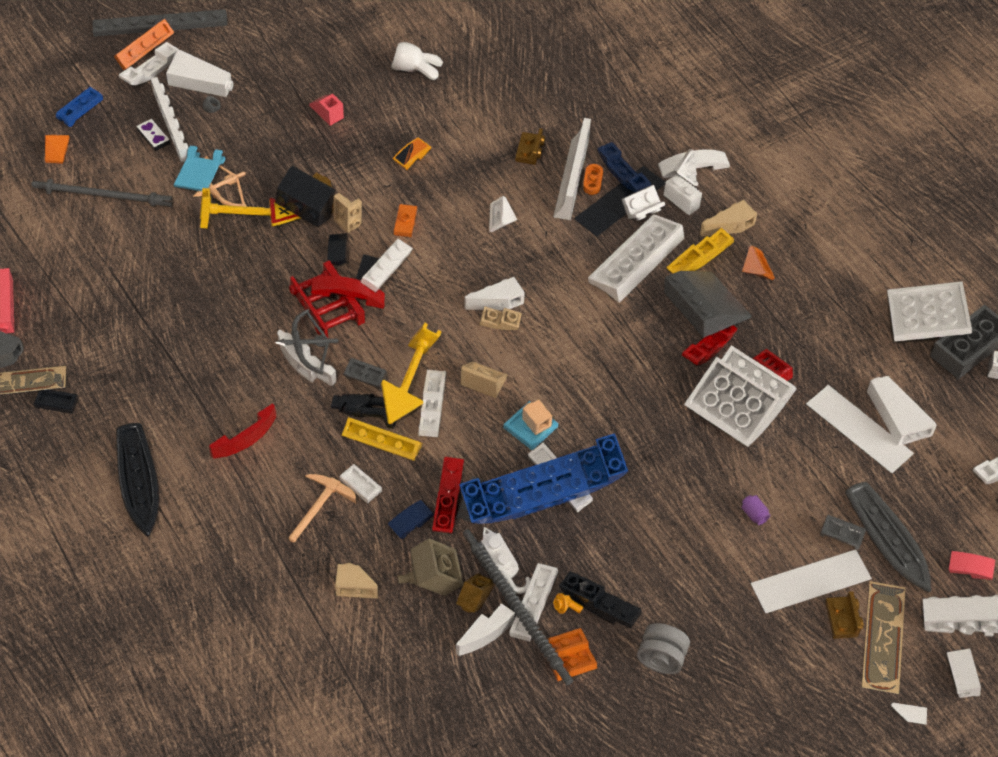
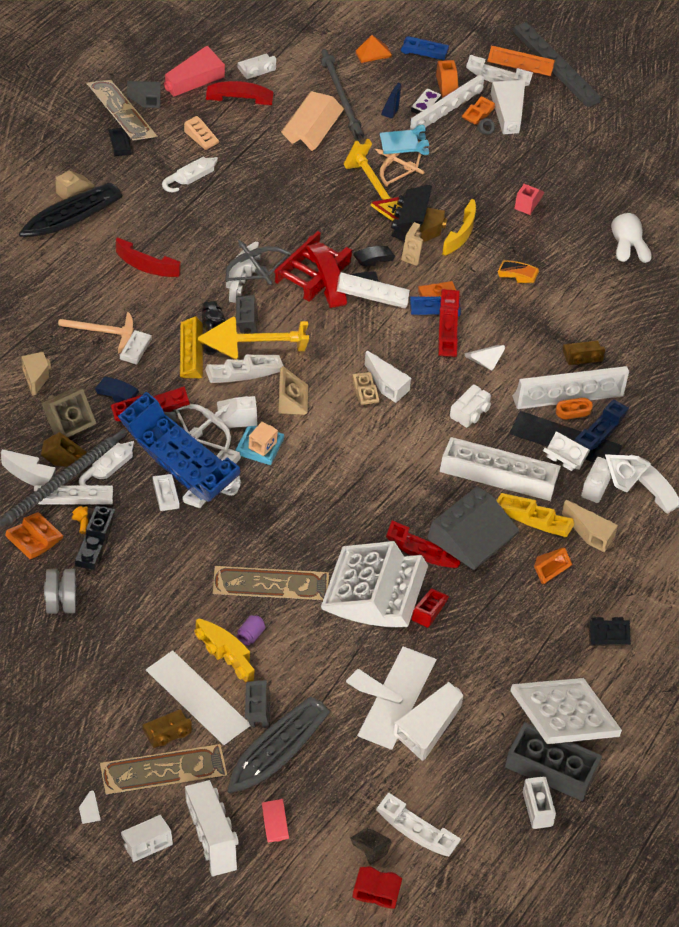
camera: 65 degrees right, 5 degrees down
(17, 245) = (257, 66): none -> white bracket
(45, 273) = (239, 89): none -> red slope
(81, 322) = (196, 124): none -> light nougat slope
(101, 464) = (72, 184): none -> tan slope
(126, 228) = (313, 119): none -> light nougat slope
(137, 104) = (447, 77): none -> orange slope
(139, 356) = (190, 173): none -> white plate
(144, 156) = (392, 104): none -> dark blue slope
(188, 100) = (479, 111): none -> orange slope
(326, 158) = (456, 240): none -> yellow slope
(423, 229) = (427, 306): none -> blue plate
(453, 228) = (448, 323): none -> red slope
(487, 426) = (240, 412): none -> white slope
(497, 469) = (197, 432): none -> white piece
(559, 248) = (470, 406): none -> white brick
(562, 521) = (165, 492): none -> white plate
(699, 477) = (270, 583): none -> sticker
(765, 537) = (224, 644): none -> yellow slope
(841, 444) = (367, 684): none -> white sticker
(845, 253) = (609, 632): none -> black bracket

